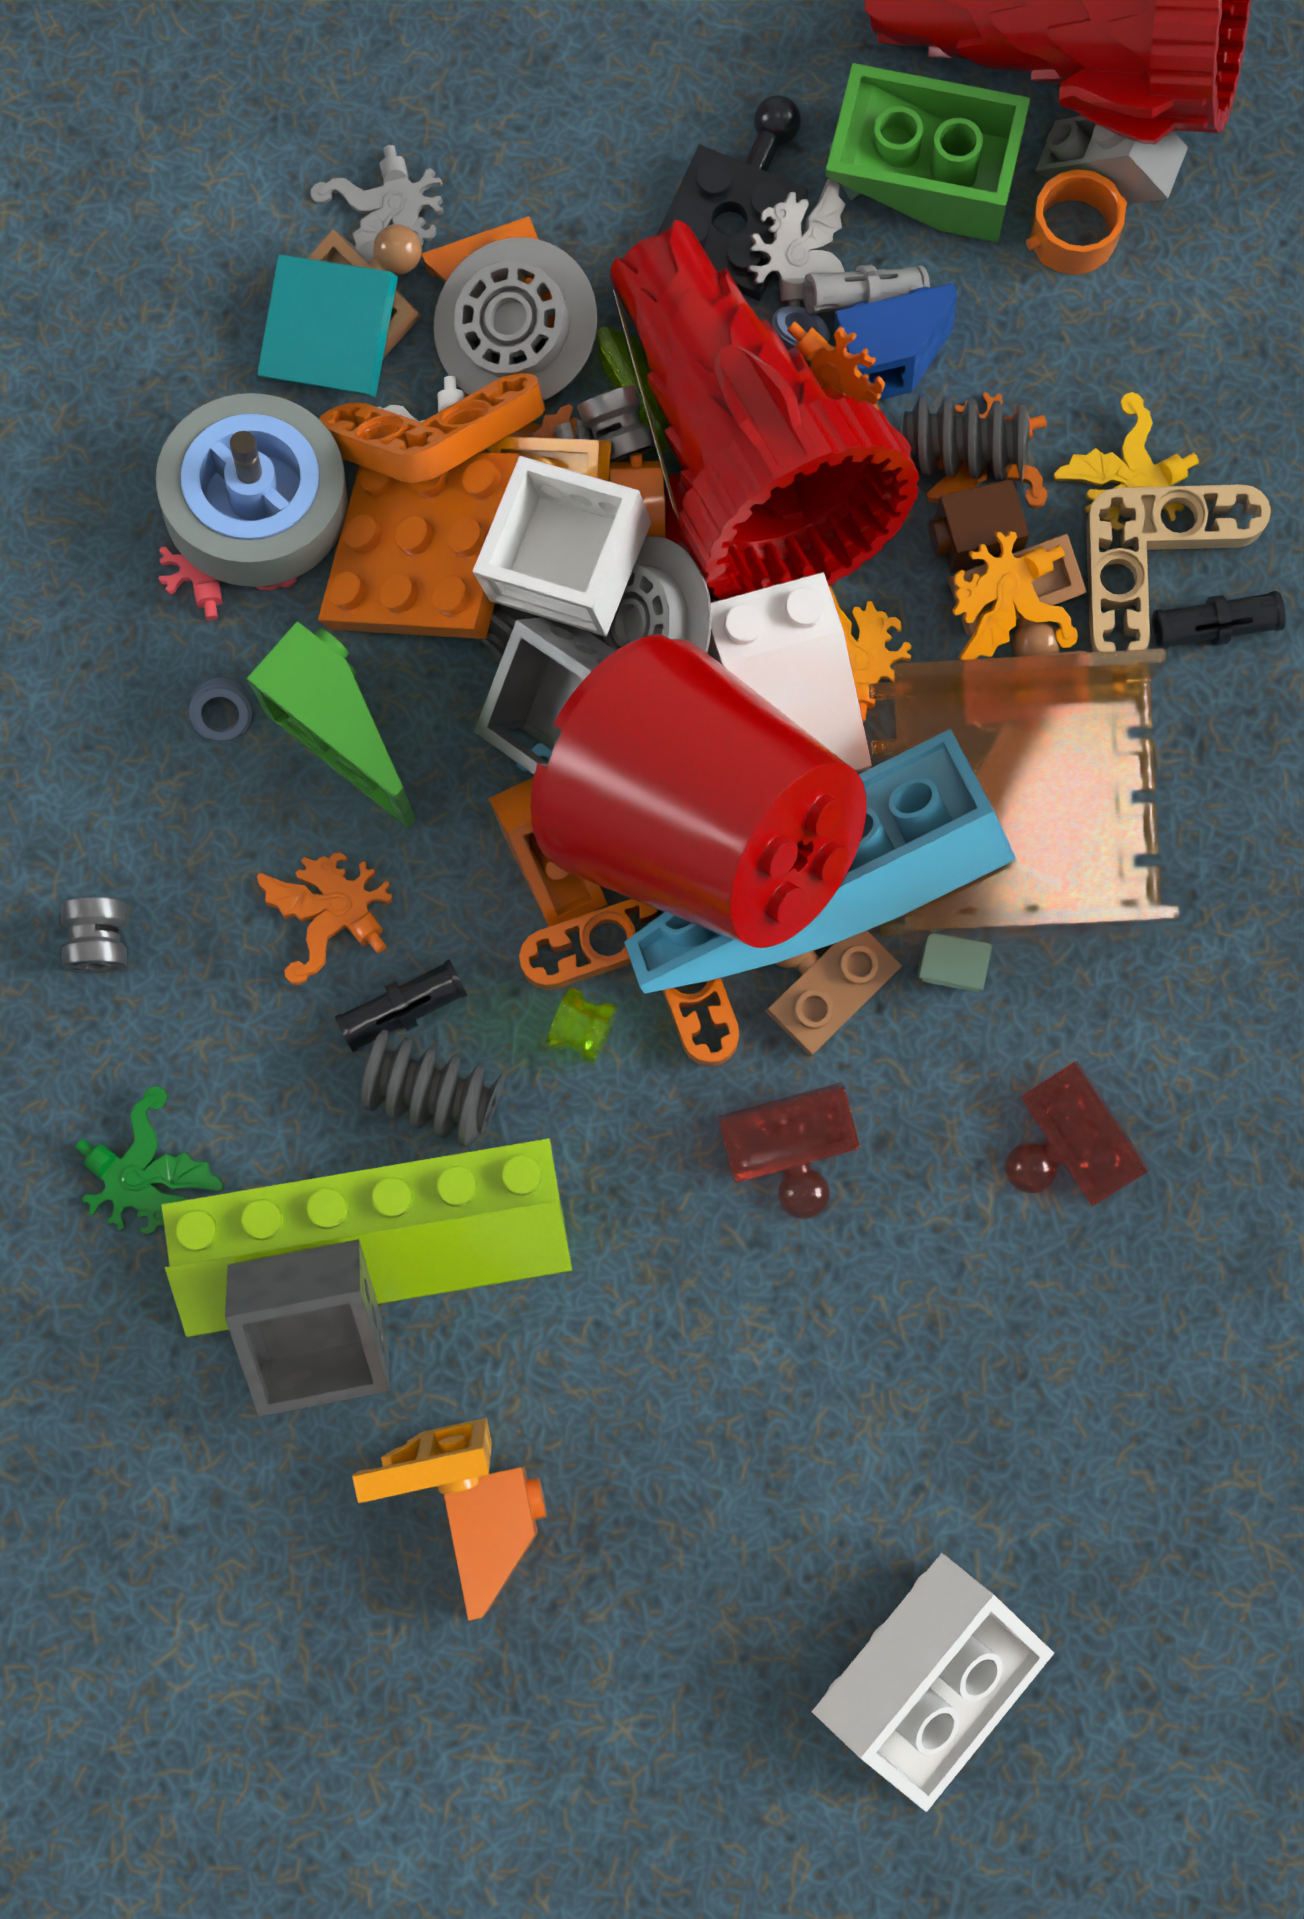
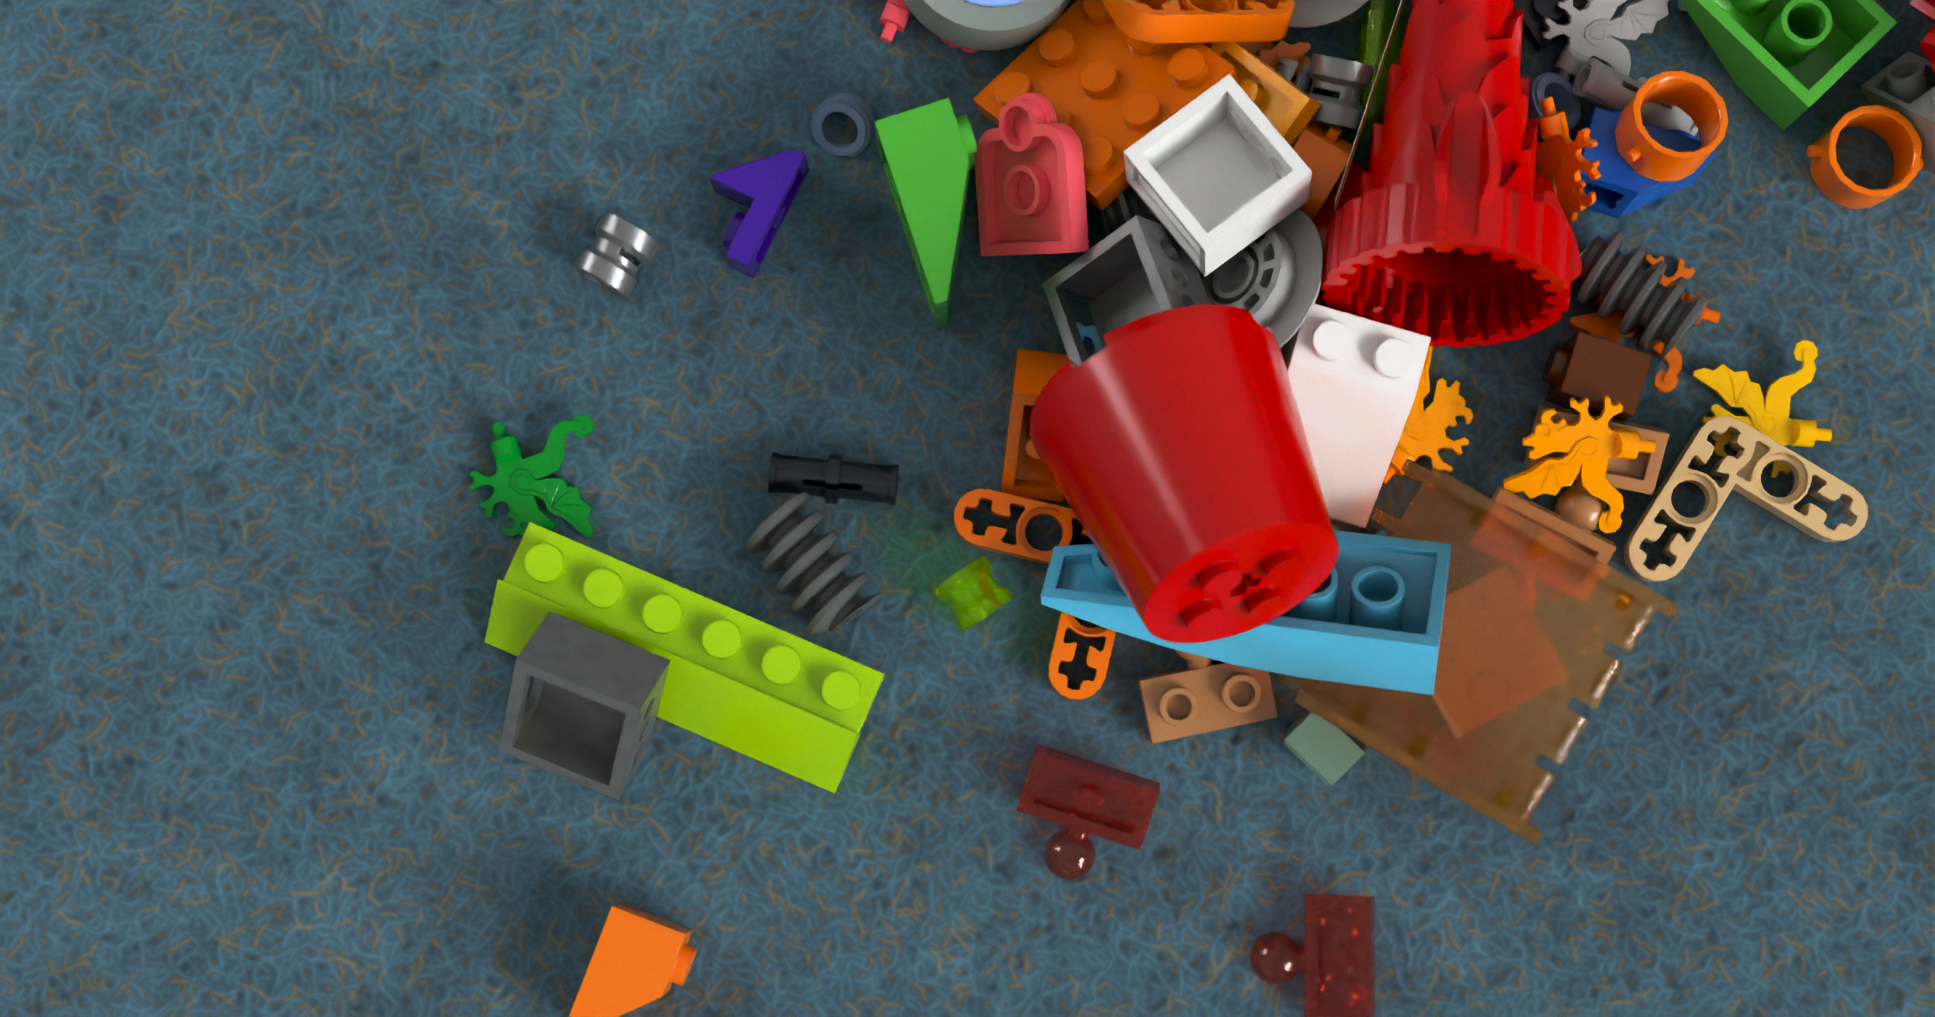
camera: 30 degrees right, 5 degrees up
(190, 802) = (768, 191): none -> dark purple slope
(339, 907) = (834, 360): orange piece -> none
(411, 654) = (1030, 183): none -> coral plate
(436, 1457) = (619, 881): light orange wing -> none
(909, 254) = (1693, 97): none -> orange piece
(1219, 620) = (1753, 592): black pin -> none

